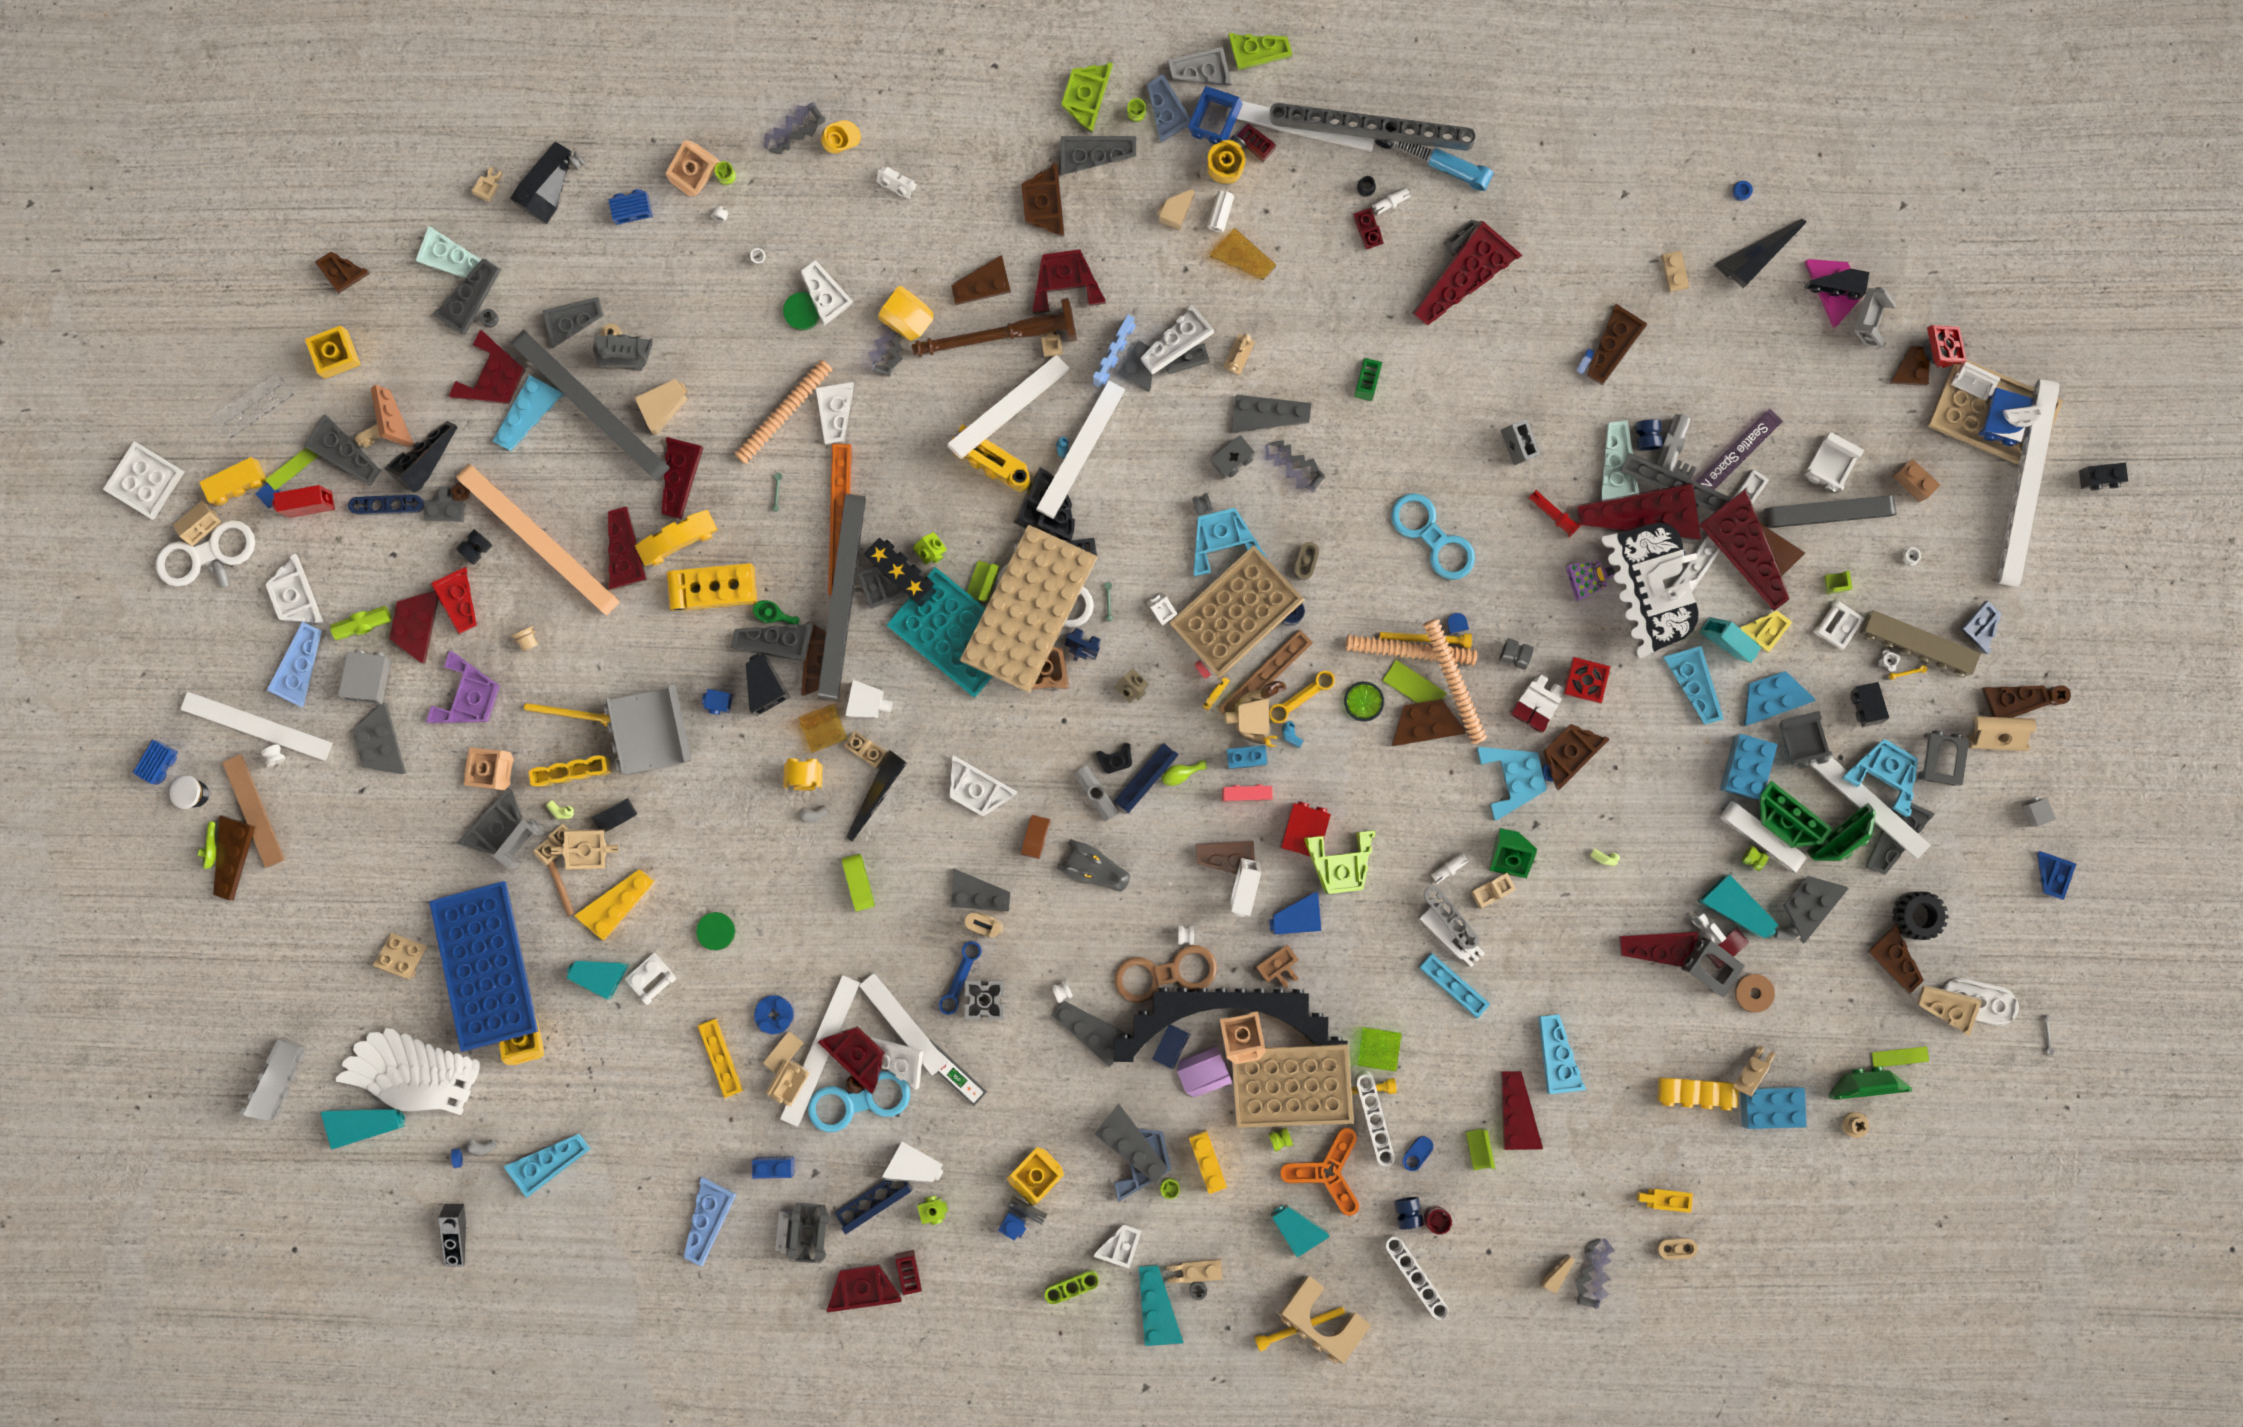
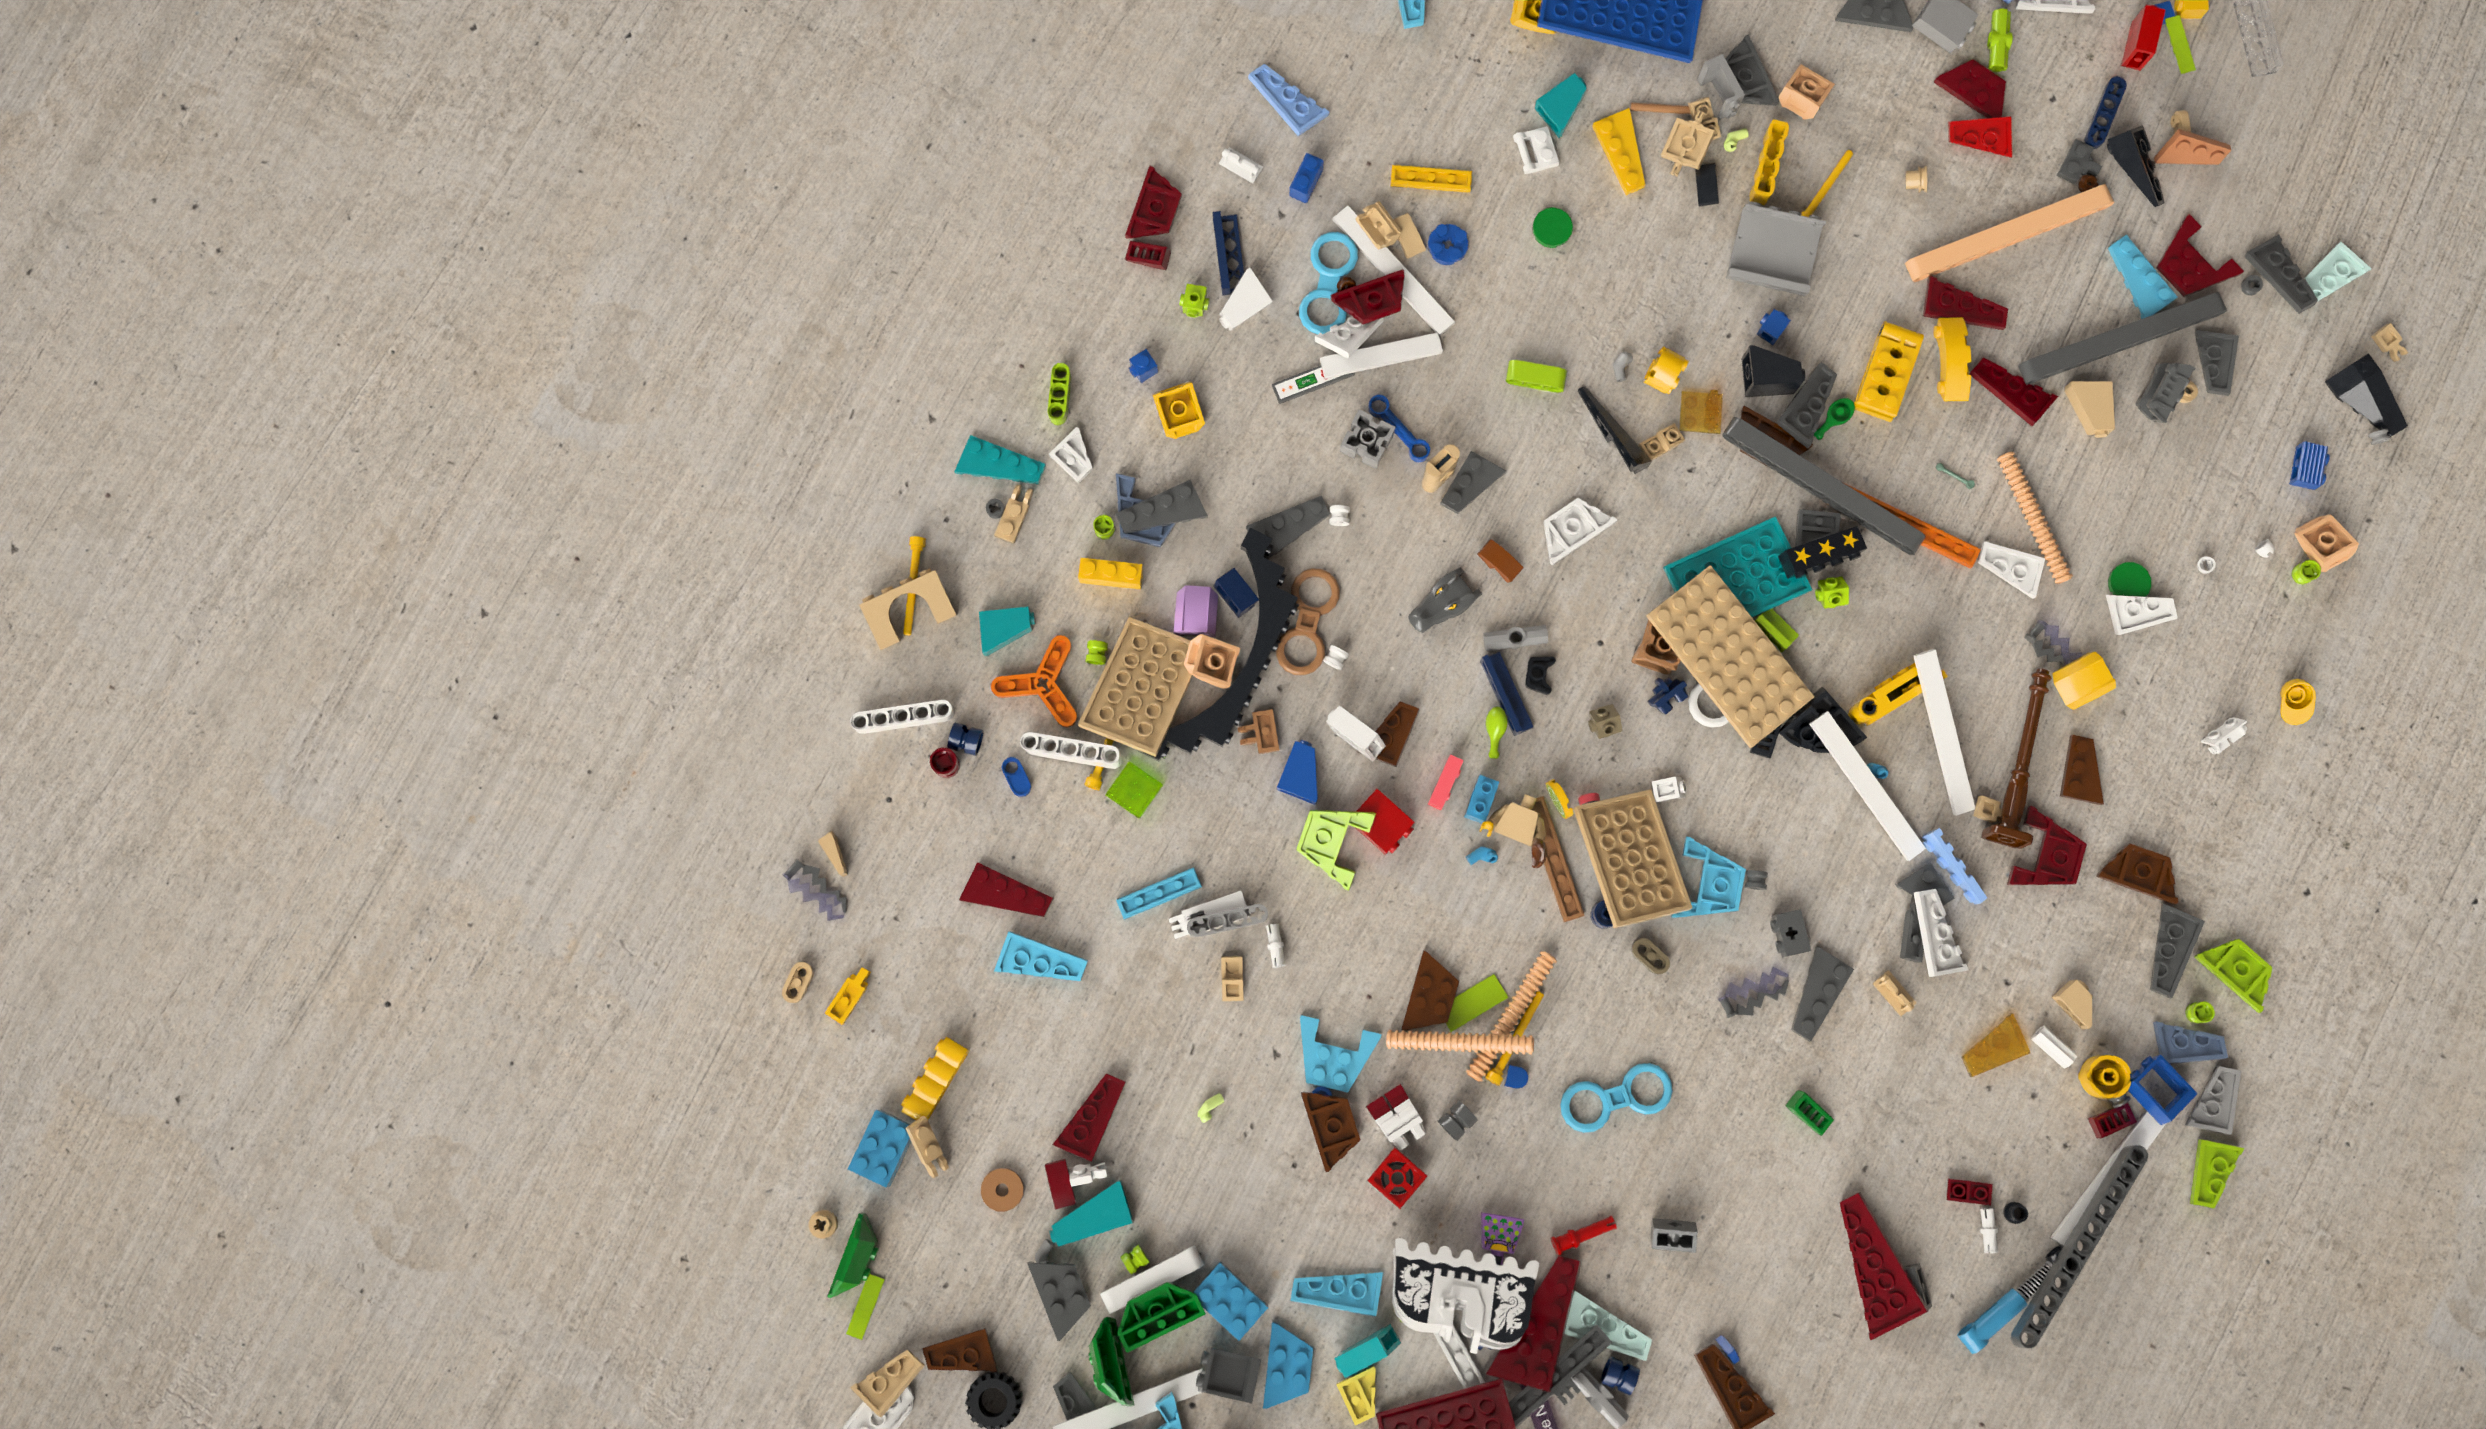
camera: 120 degrees right, 5 degrees down
(332, 352) = (2280, 126): yellow brick -> none
(340, 271) = (2358, 169): reddish brown wing -> none
(340, 450) = (2180, 92): dark grey wing -> none
(471, 553) = (2025, 165): black wheel -> none
(473, 698) = (1883, 111): medium lavender wing -> none
(787, 132) = (2339, 676): piece -> none
(817, 1237) = (1233, 169): dark grey piece -> none
(866, 702) = (1708, 463): white torso -> none
(1027, 1210) = (1150, 387): dark grey pin -> none
(1108, 586) = (1715, 749): sand green hinge -> none
(1301, 697) = (1515, 883): yellow piece -> none
(1364, 701) = (1481, 944): clear neon green wheel -> none
(1480, 1149) = (990, 838): lime panel -> none
(1512, 854) = (1259, 1014): green slope -> none
(1727, 976) = (1026, 1157): dark grey panel -> none

